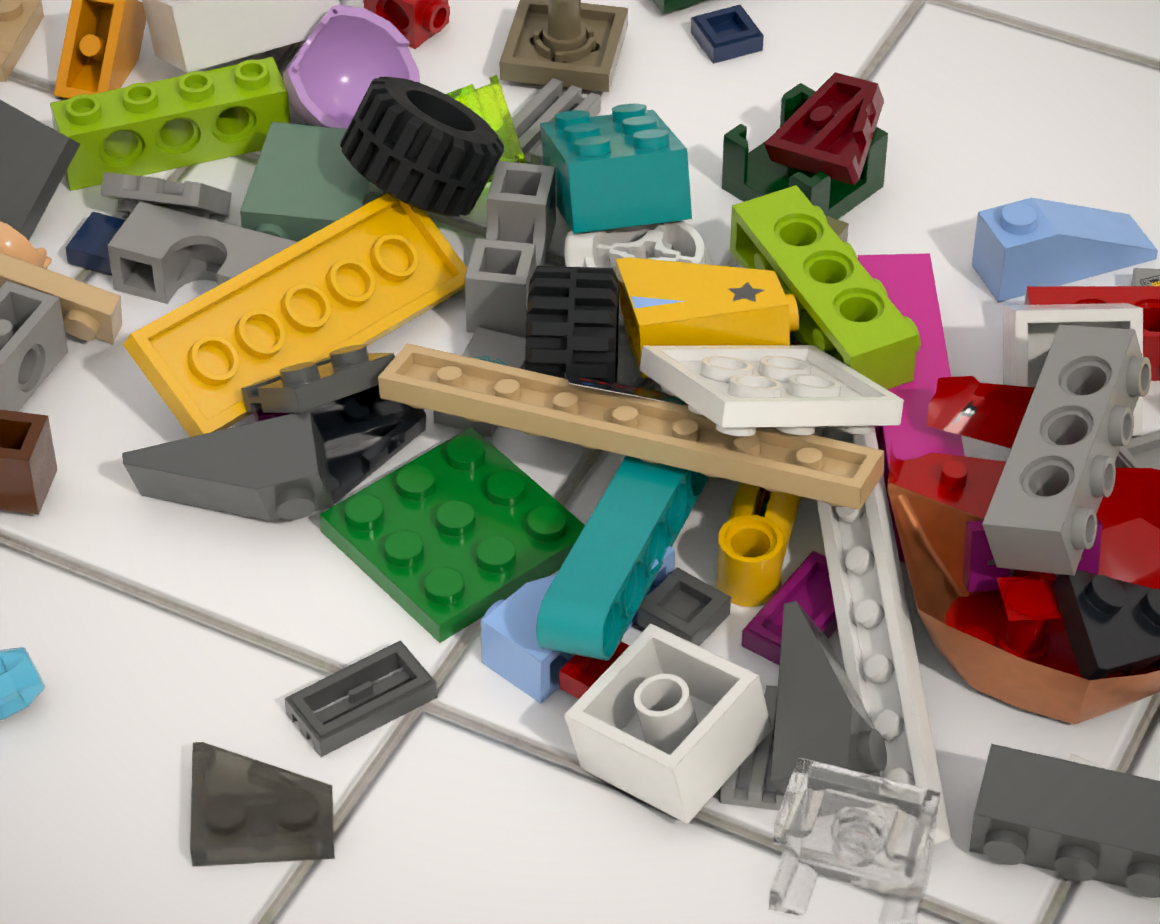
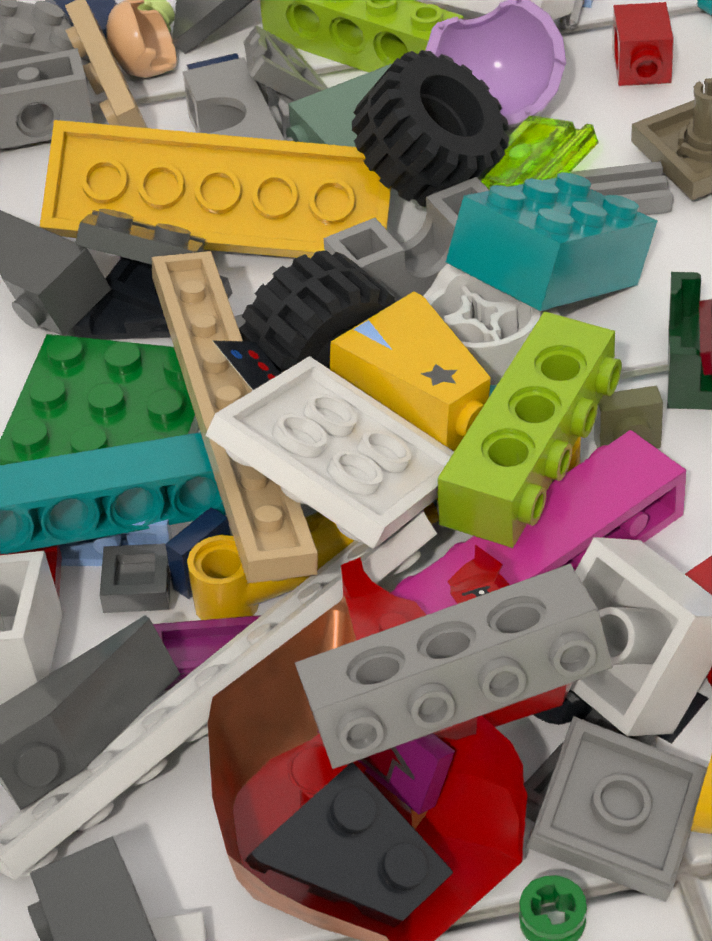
camera: 55 degrees right, 0 degrees up
(701, 548) = (178, 548): none -> dark blue tile

